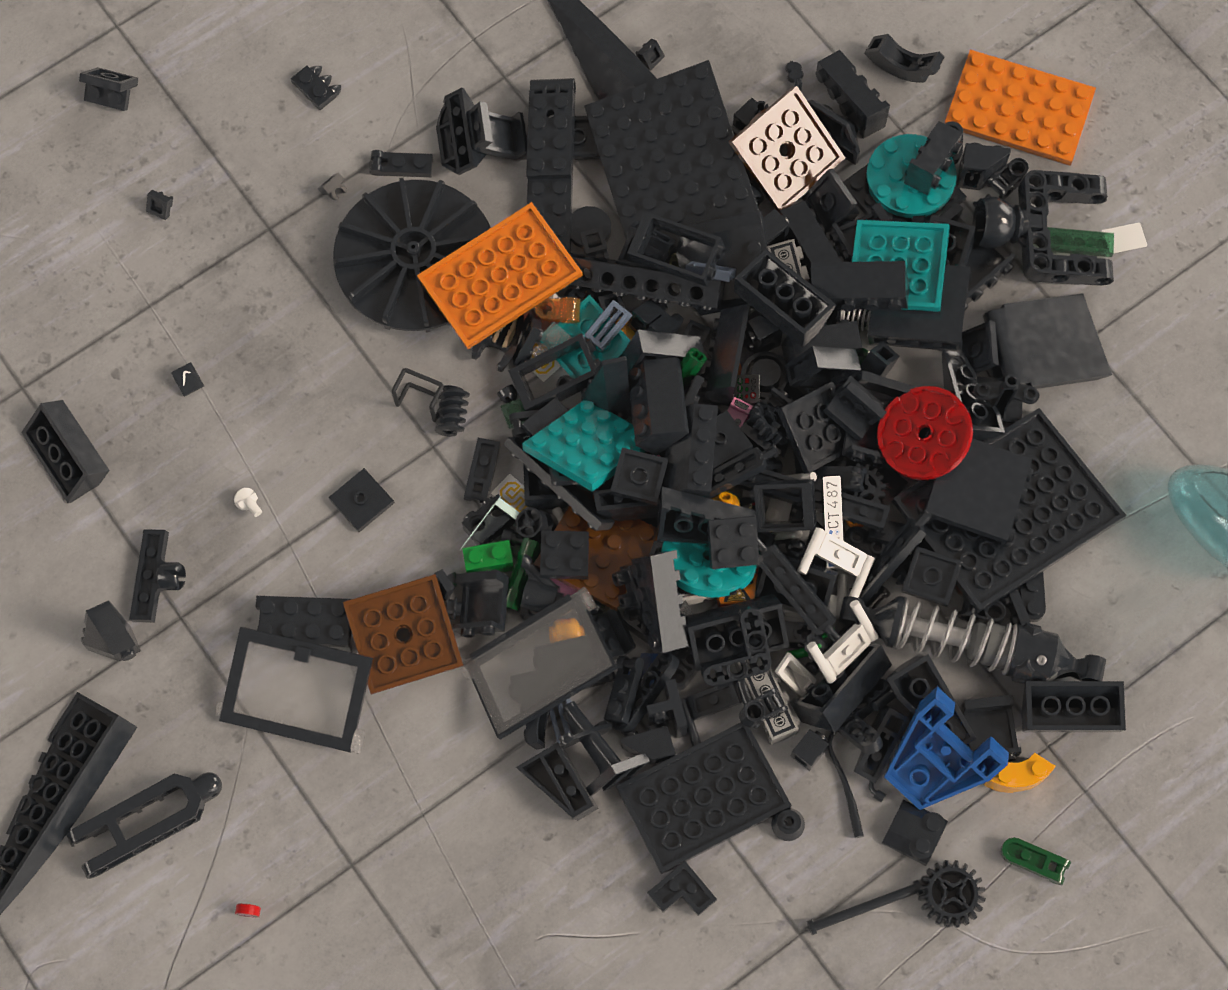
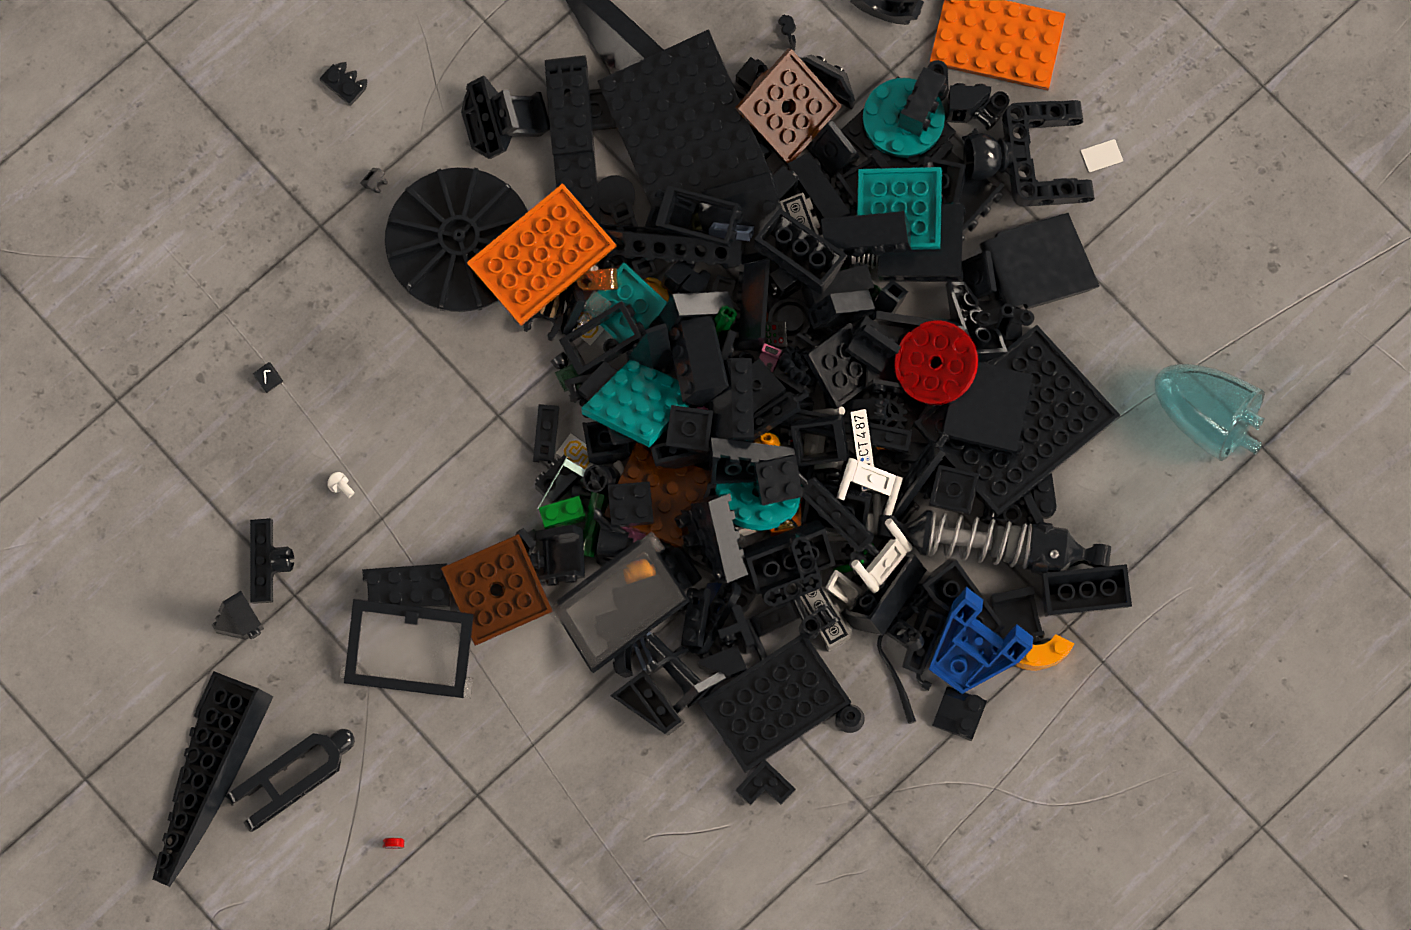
camera: 10 degrees left, 5 degrees up
(64, 450) = (167, 455): black slope -> none
(108, 87) = (150, 104): black bracket -> none
(159, 204) = (216, 214): black tile -> none
(361, 500) = (441, 472): black plate -> none
(401, 164) = (434, 151): black plate -> none
(436, 396) = (500, 370): black piece -> none
(450, 411) = (511, 382): black piece -> none
(570, 494) = (632, 451): black plate -> none
(603, 317) = (641, 308): sand blue tile -> none
(650, 54) = (652, 21): black tile -> none
(810, 749) = (862, 651): black brick -> none
(852, 94) = (842, 42): black wedge -> none
(864, 907) = (922, 781): black bar -> none
(960, 902) = (987, 755): black gear -> none
(1035, 859) = (1063, 725): dark green plate -> none
(1082, 242) = (1062, 164): clear green plate -> none

